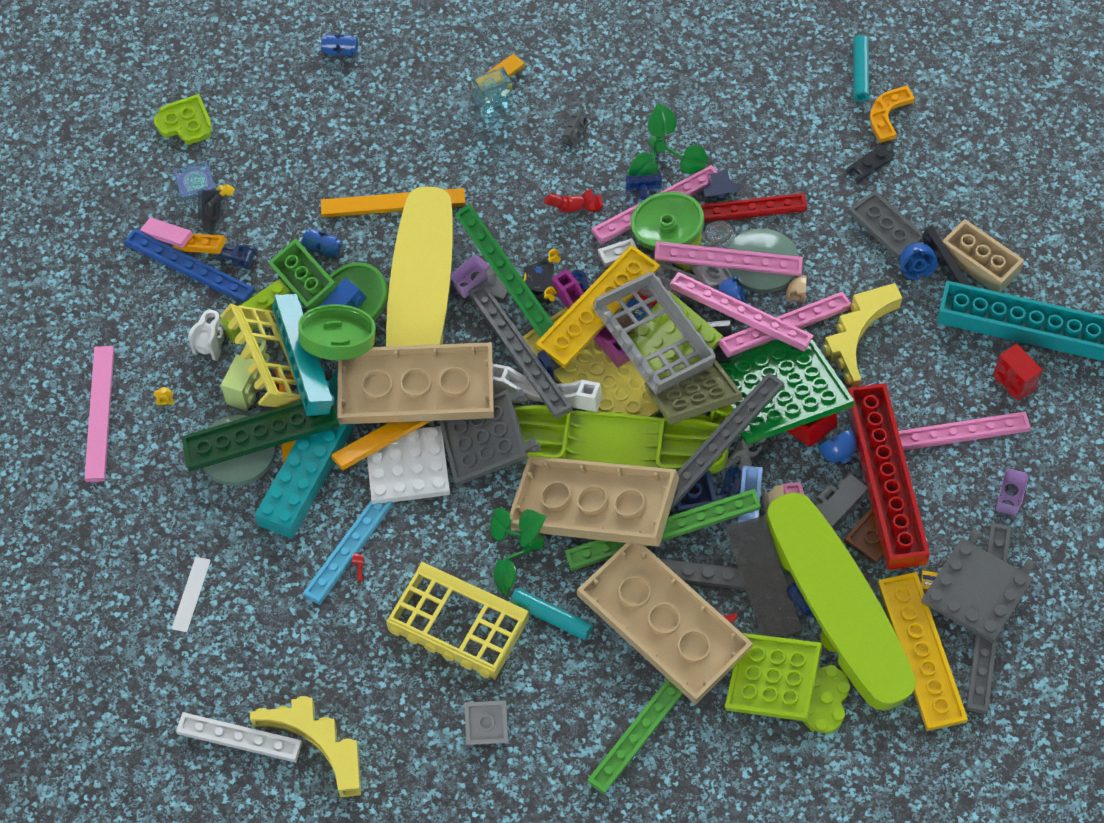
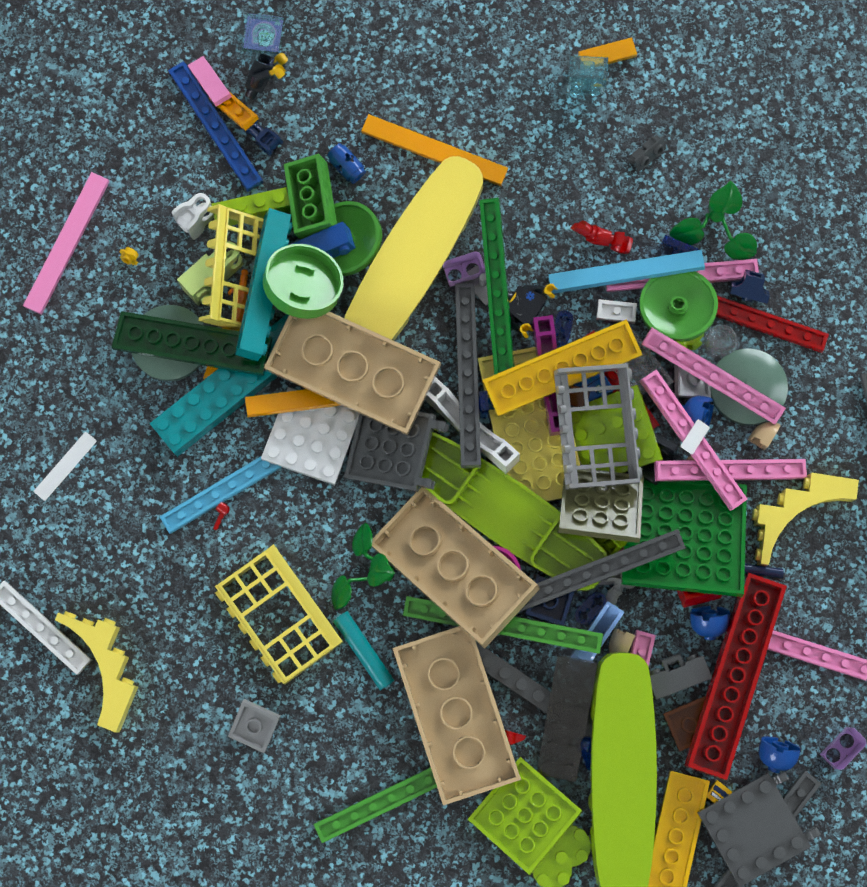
camera: 25 degrees right, 20 degrees up
(611, 216) = (627, 271): none -> medium azure tile
(740, 306) = (695, 436): none -> white sticker
(960, 521) = (778, 754): none -> blue cylinder

